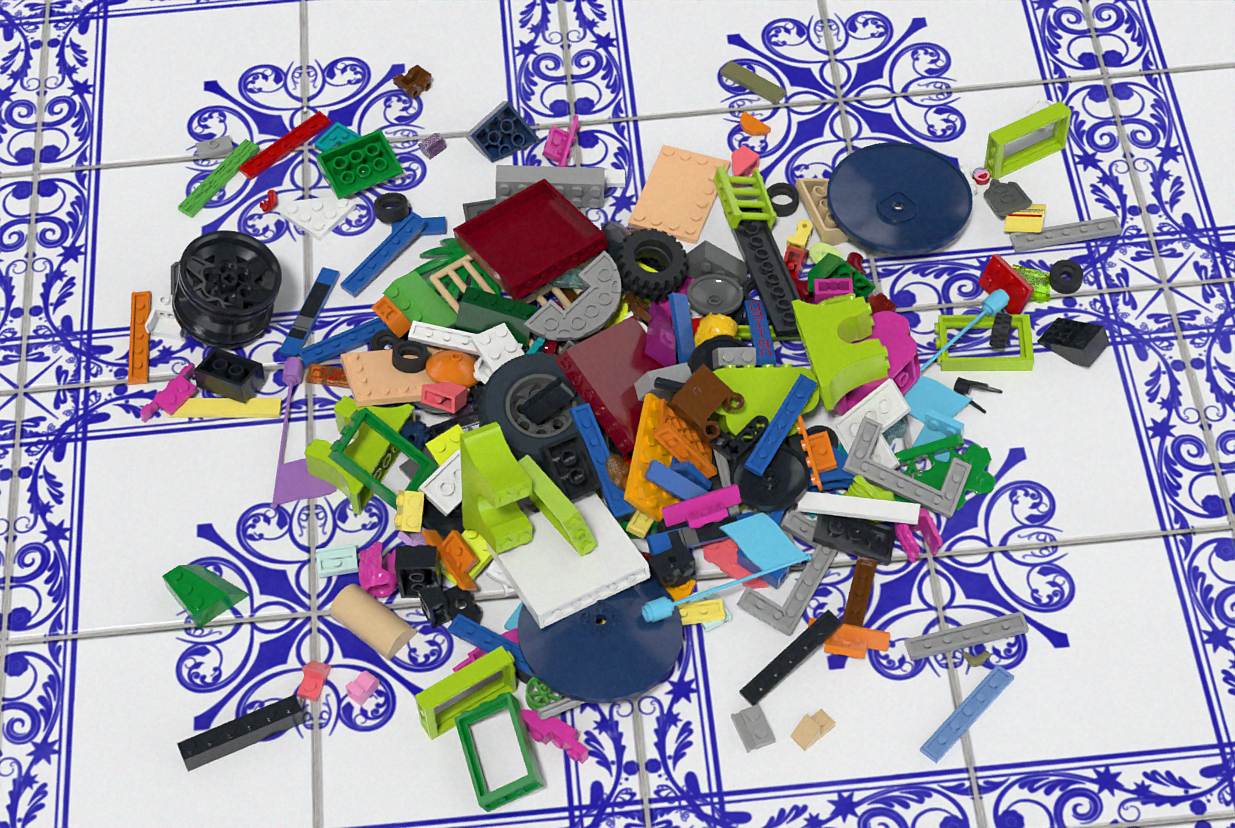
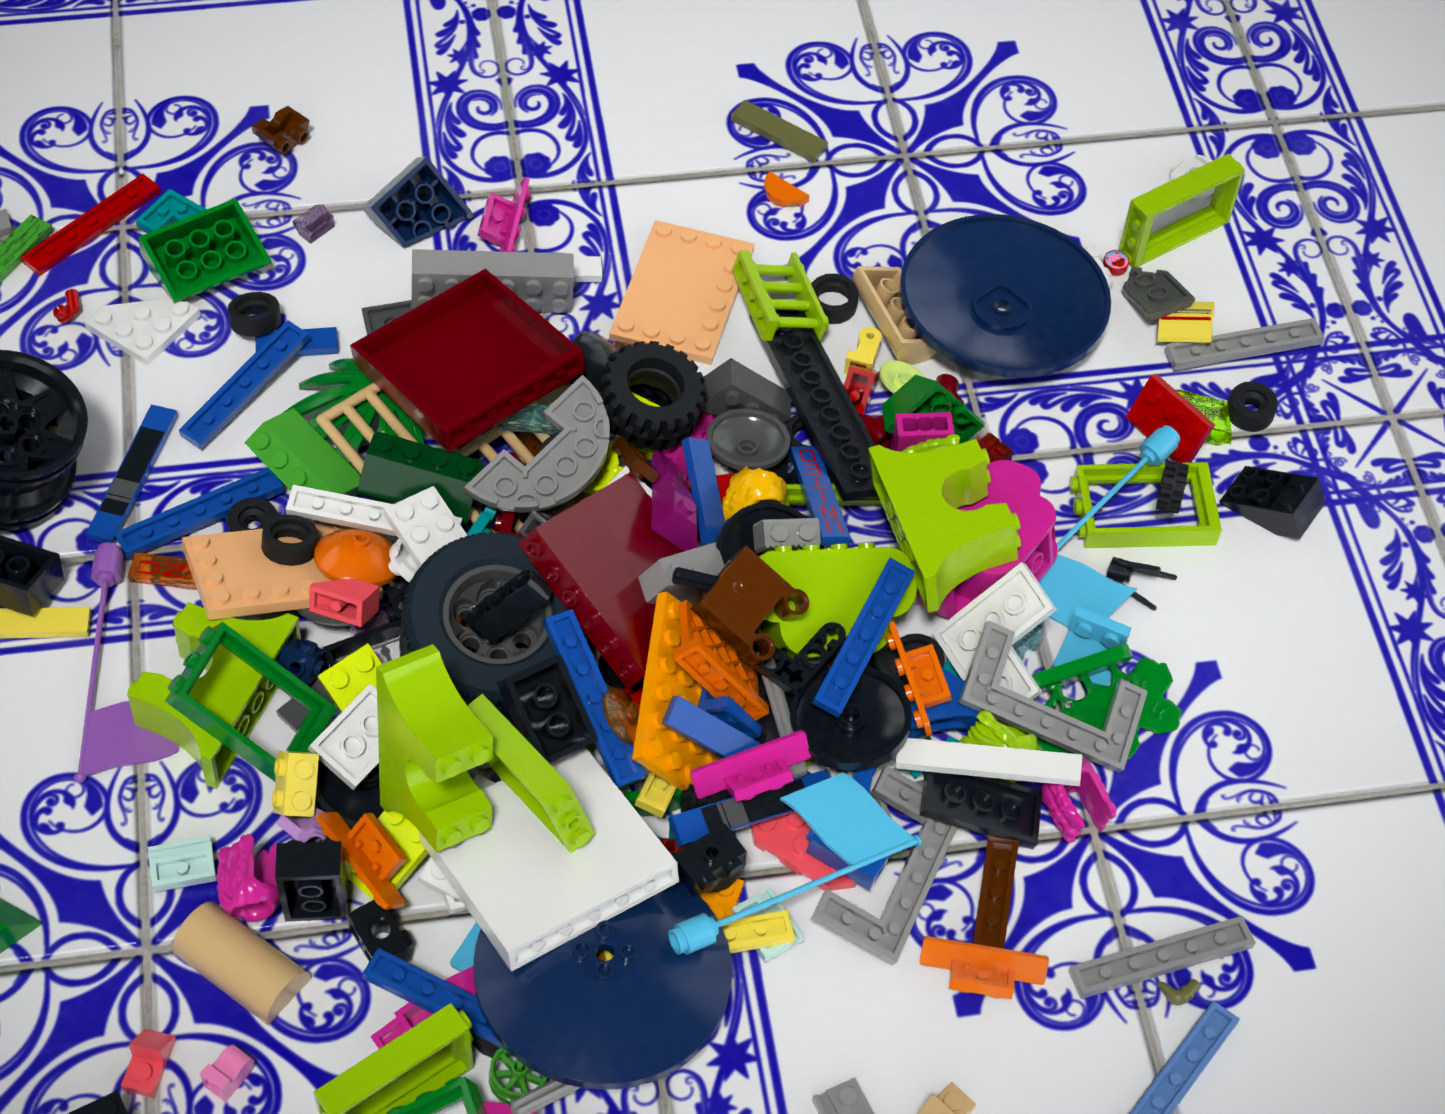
camera: 10 degrees left, 0 degrees up
(391, 316) = (259, 478): orange brick -> none
(434, 605) = (338, 933): black brick -> none
(744, 162) = (774, 245): coral slope -> none
(790, 658) = (899, 1003): black tile -> none

